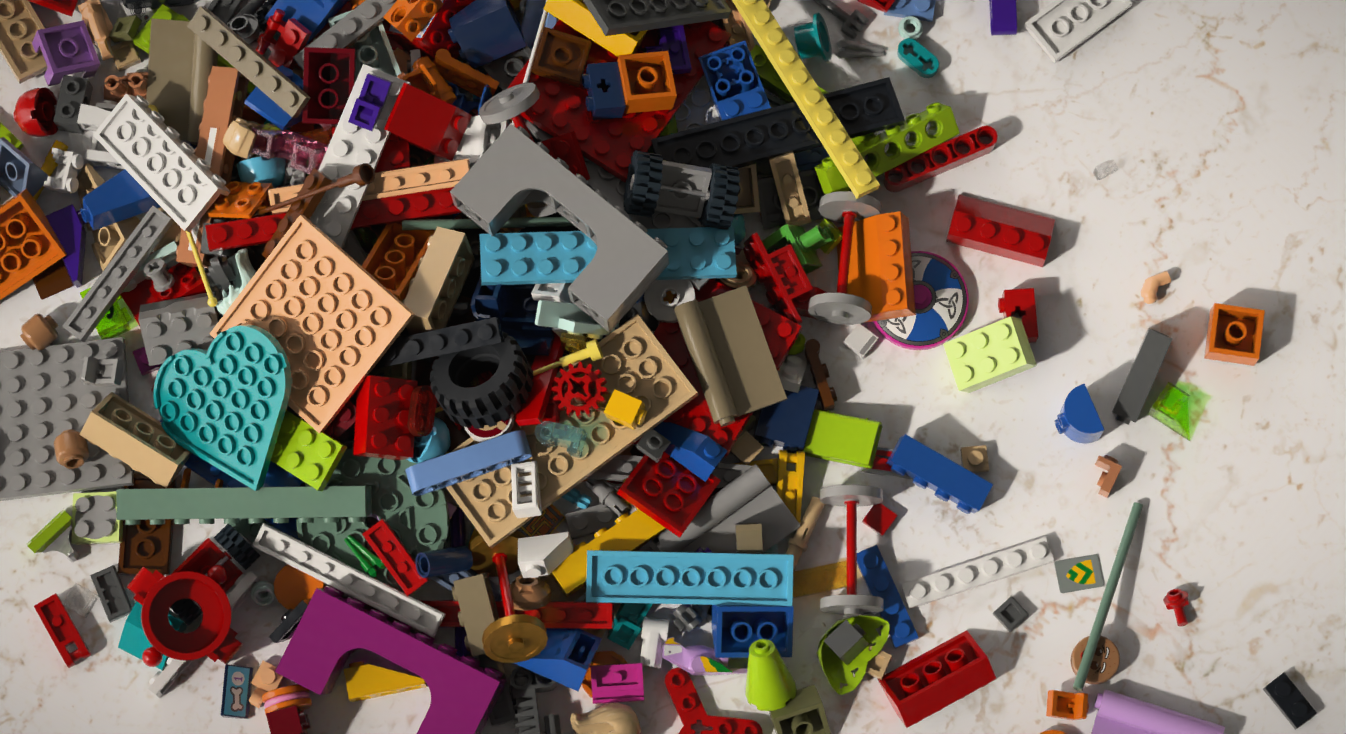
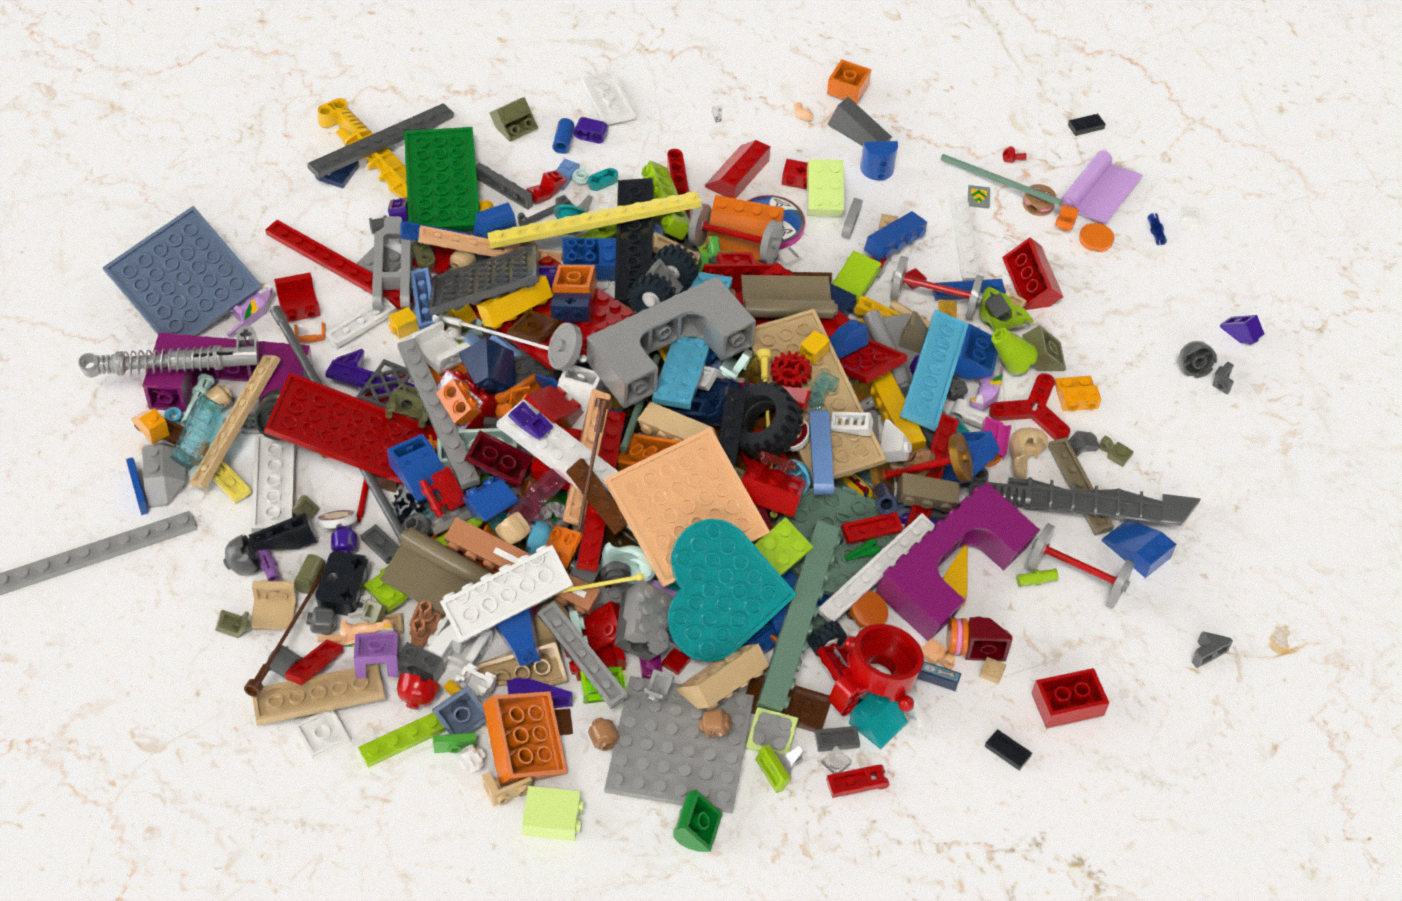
camera: 80 degrees left, 25 degrees down
(157, 272) = (591, 627): light grey bush -> none
(248, 62) = (455, 505): dark tan plate -> none
(290, 622) = (893, 614): black plate -> none
(653, 445) = (841, 349): dark grey bracket -> none
(961, 407) = (851, 218): none -> light grey beam
(1010, 614) = (997, 233): dark grey tile -> none
(1108, 479) = (921, 161): nougat bracket -> none
(1172, 410) = (891, 123): clear neon green slope -> none

